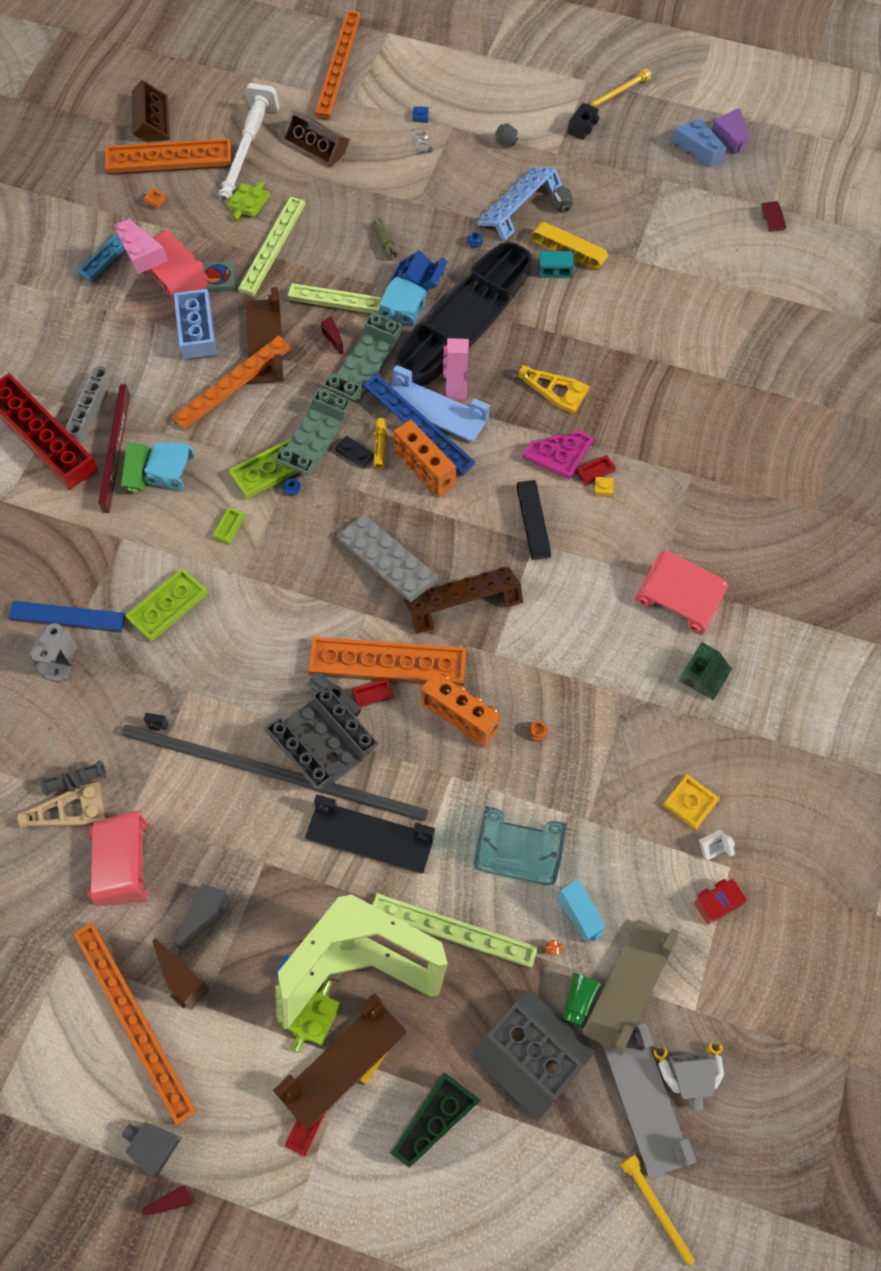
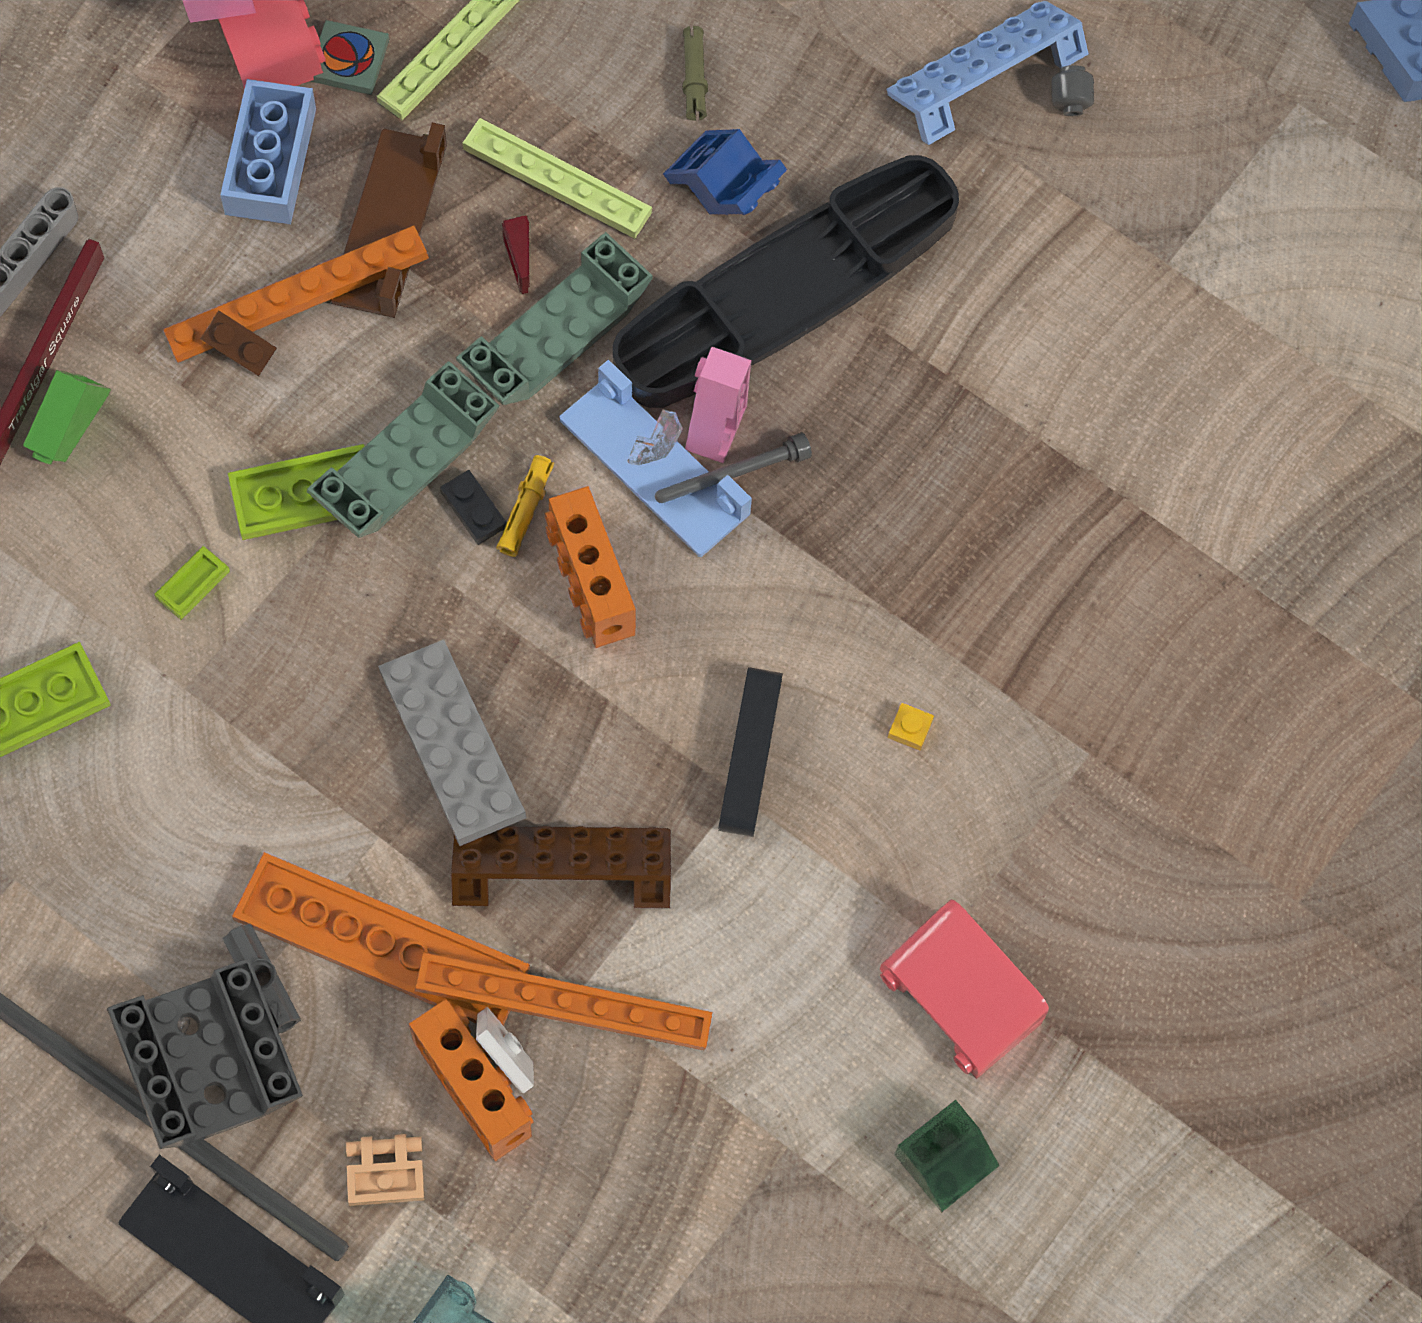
camera: 15 degrees right, 5 degrees up
(167, 464) = (120, 428): medium azure piece -> none
(212, 411) = (238, 343): none -> reddish brown plate
(291, 491) = (332, 550): blue plate -> none
(373, 692) = (333, 993): red tile -> none
(402, 301) = (674, 223): medium azure piece -> none
(405, 411) = (610, 492): blue plate -> none
(434, 397) = (661, 442): none -> clear slope
(435, 773) = (385, 1181): none -> light nougat plate
(472, 687) = (505, 1050): none -> white plate
(474, 239) = (867, 127): blue plate -> none
(490, 658) = (563, 1001): none -> orange plate
(497, 383) = (795, 448): none -> dark grey piece
(538, 731) = (599, 1163): orange plate -> none
(556, 264) = (1003, 230): teal brick -> none
(559, 452) = (854, 631): dark pink plate -> none
(560, 240) = (1047, 197): yellow beam -> none
(572, 398) = (927, 522): yellow plate -> none
(596, 468) = (909, 686): red tile -> none

